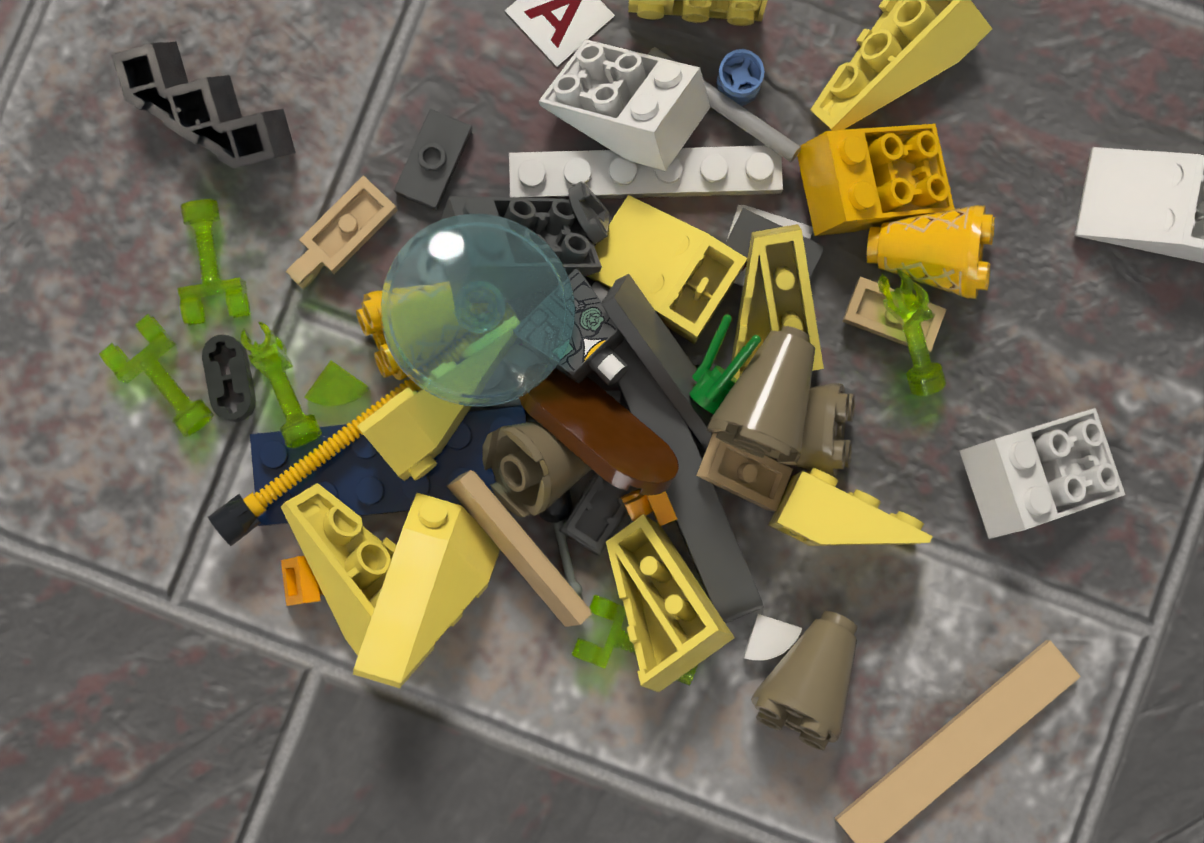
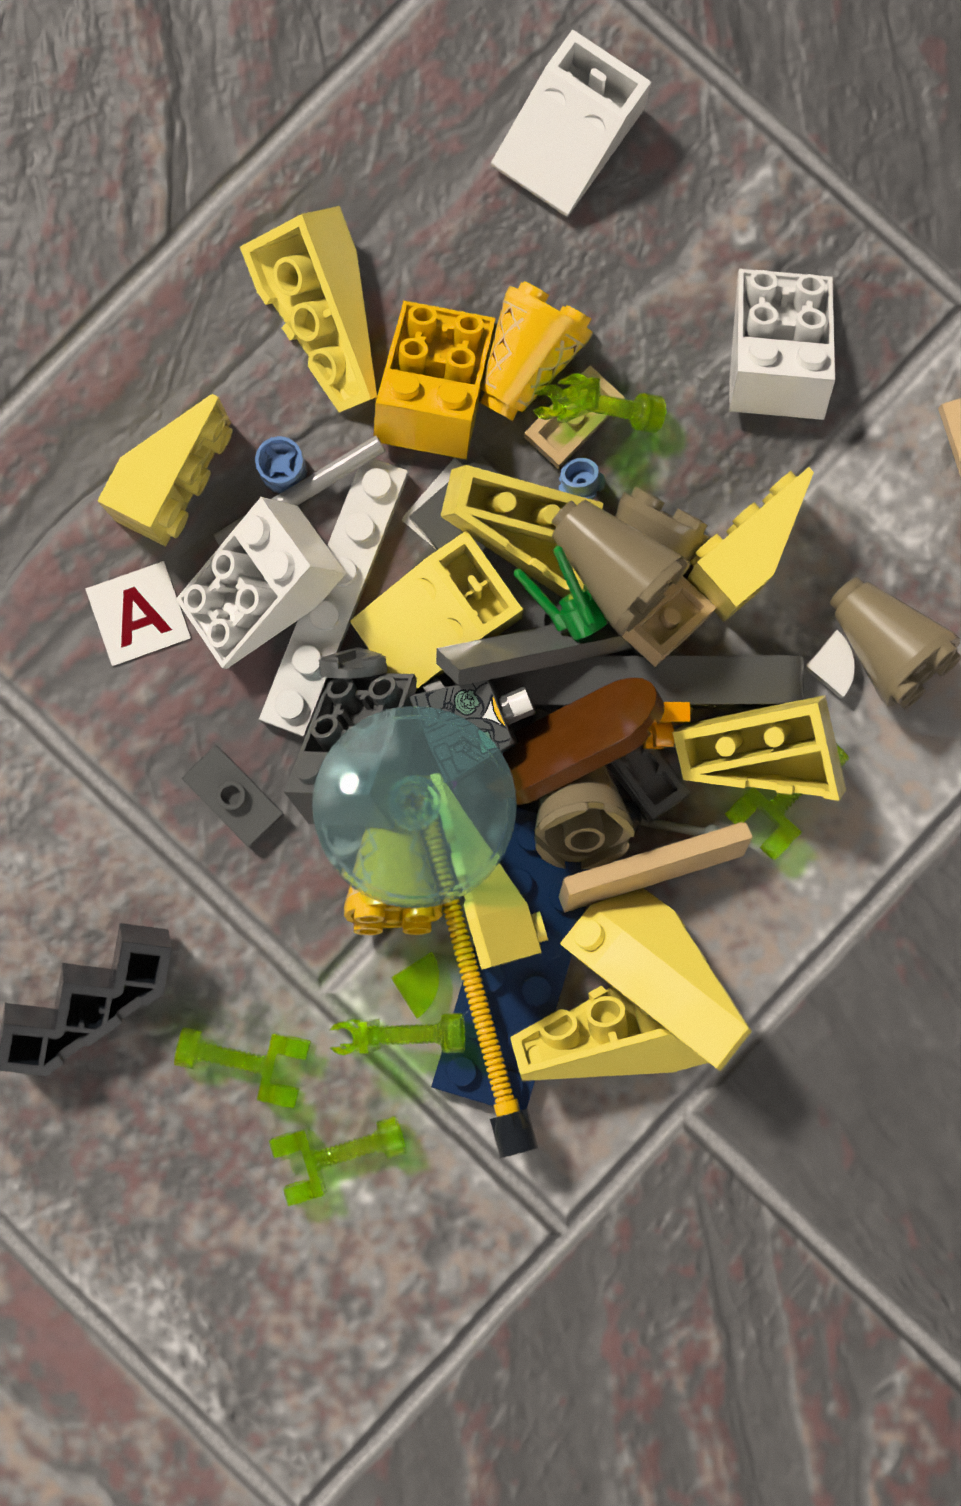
camera: 70 degrees left, 0 degrees up
(218, 381) = (363, 1098): pearl dark grey beam -> none
(299, 582) = (597, 1095): light orange tile -> none
(342, 231) = (267, 913): tan plate -> none
(839, 344) = (581, 478): none -> medium blue plate

